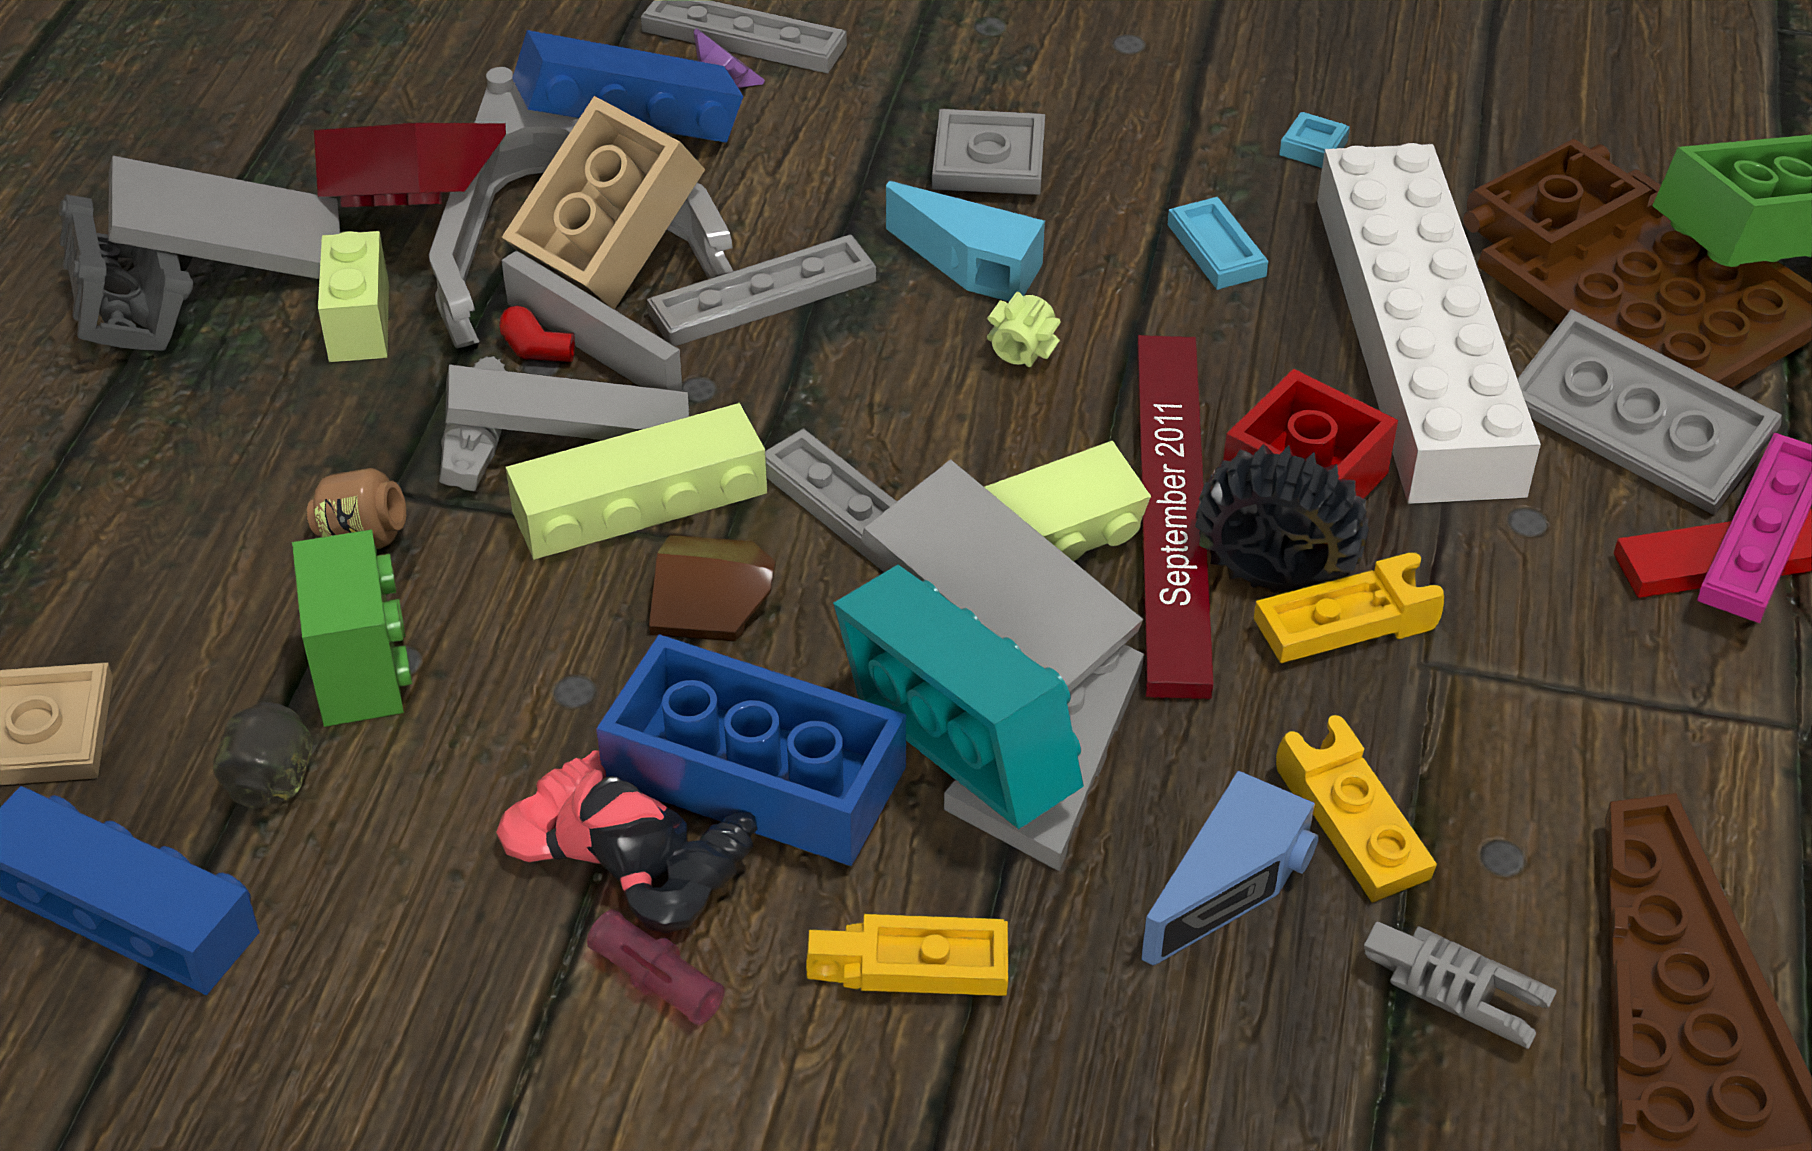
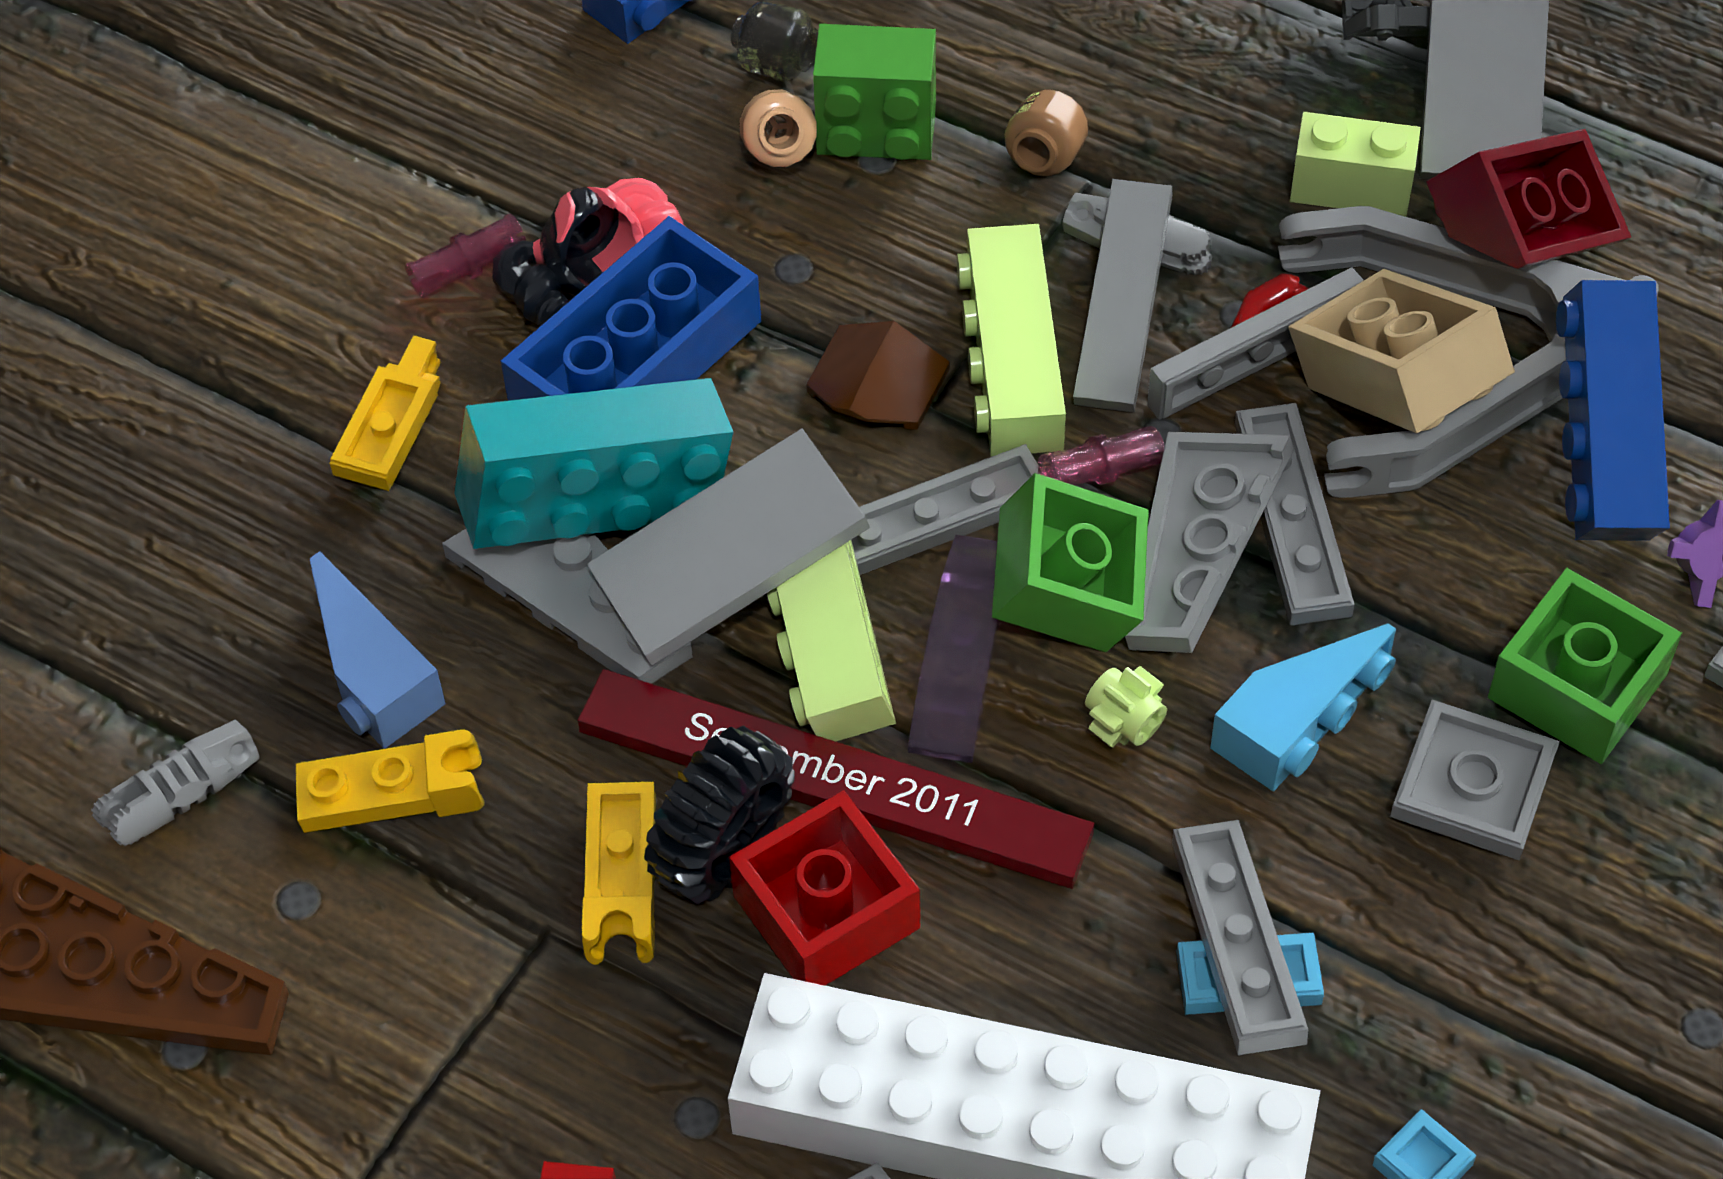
camera: 110 degrees right, 10 degrees up
(406, 712) = (795, 140): none -> light nougat head
(764, 395) = (1104, 458): none -> clear pink pin
(797, 327) = (1198, 526): none -> light grey wing
(871, 96) = (1583, 665): none -> bright green brick
(909, 368) = (1070, 563): none -> bright green brick
(979, 443) = (957, 654): none -> clear purple slope
(1200, 235) = (1239, 938): none -> light grey tile

